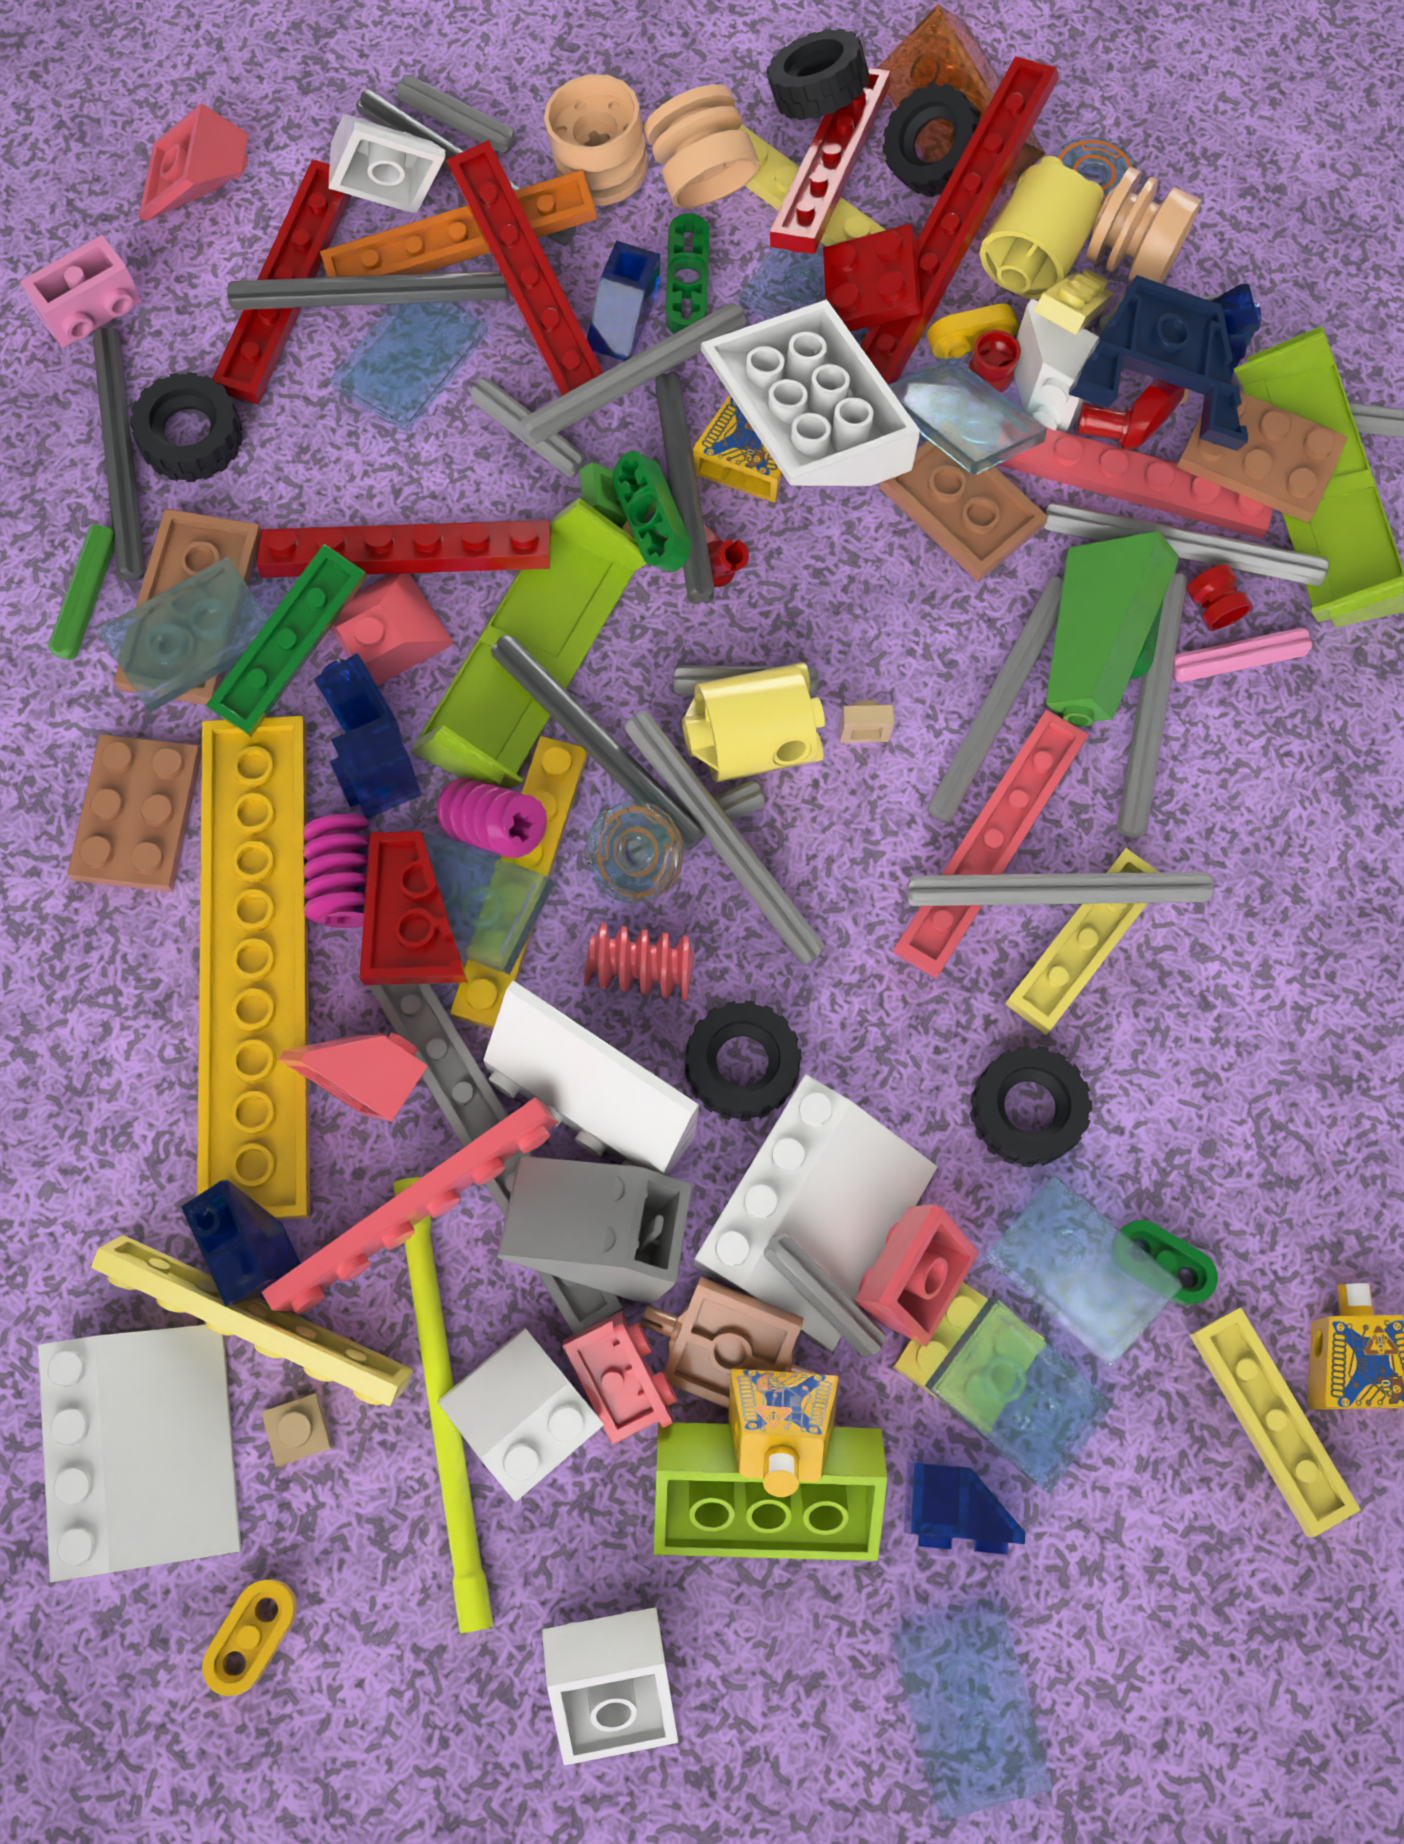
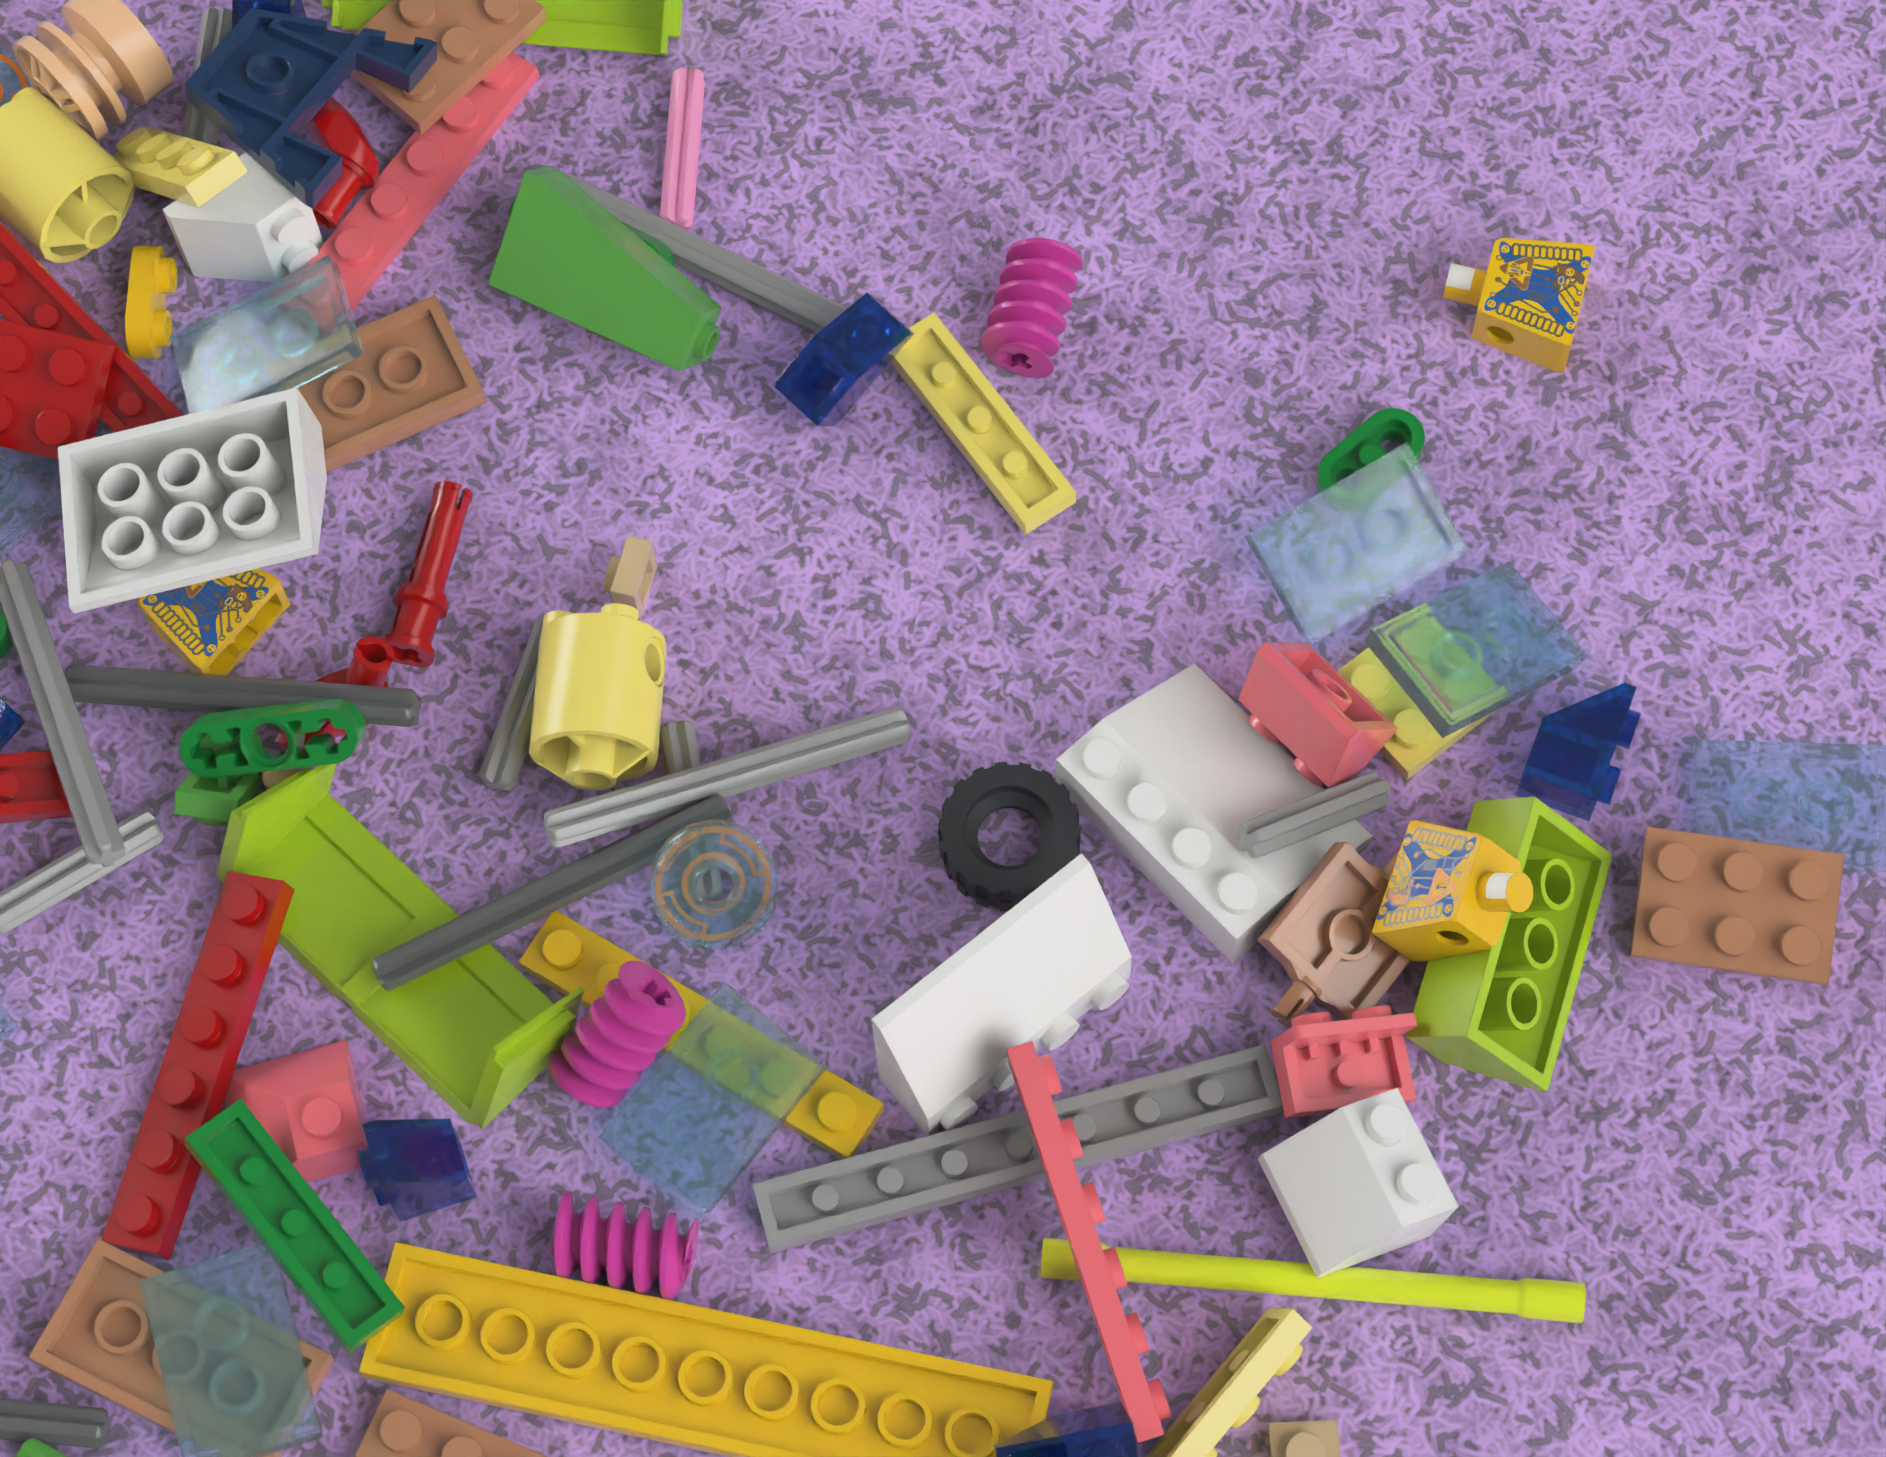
camera: 65 degrees left, 5 degrees down
(362, 1071) = (902, 1260): coral slope -> none
(374, 767) = (507, 1158): clear blue brick -> none
(405, 916) = (716, 1169): red wing -> none
(597, 1225) = (1167, 1034): light grey slope -> none
(609, 1686) = (1677, 1166): white slope -> none
(640, 961) = (850, 913): coral piece -> none
(802, 584) = (422, 598): none -> red pin
(859, 1684) = (1736, 906): none -> nougat plate
(994, 838) = (829, 488): coral plate -> none
(995, 358) = (198, 286): red wheel -> none
(997, 703) = (649, 424): light grey axle -> none
(1058, 1078) = (1164, 496): black tyre -> none
(1059, 888) = (913, 429): light grey axle -> none
(1094, 818) = (843, 361): none -> clear blue slope
(1191, 544) = (523, 154): light grey axle -> none
(1201, 947) = (1031, 306): none -> dark pink piece
(1219, 597) = (605, 145): red wheel -> none
(1275, 1423) = (1568, 407): light yellow plate -> none

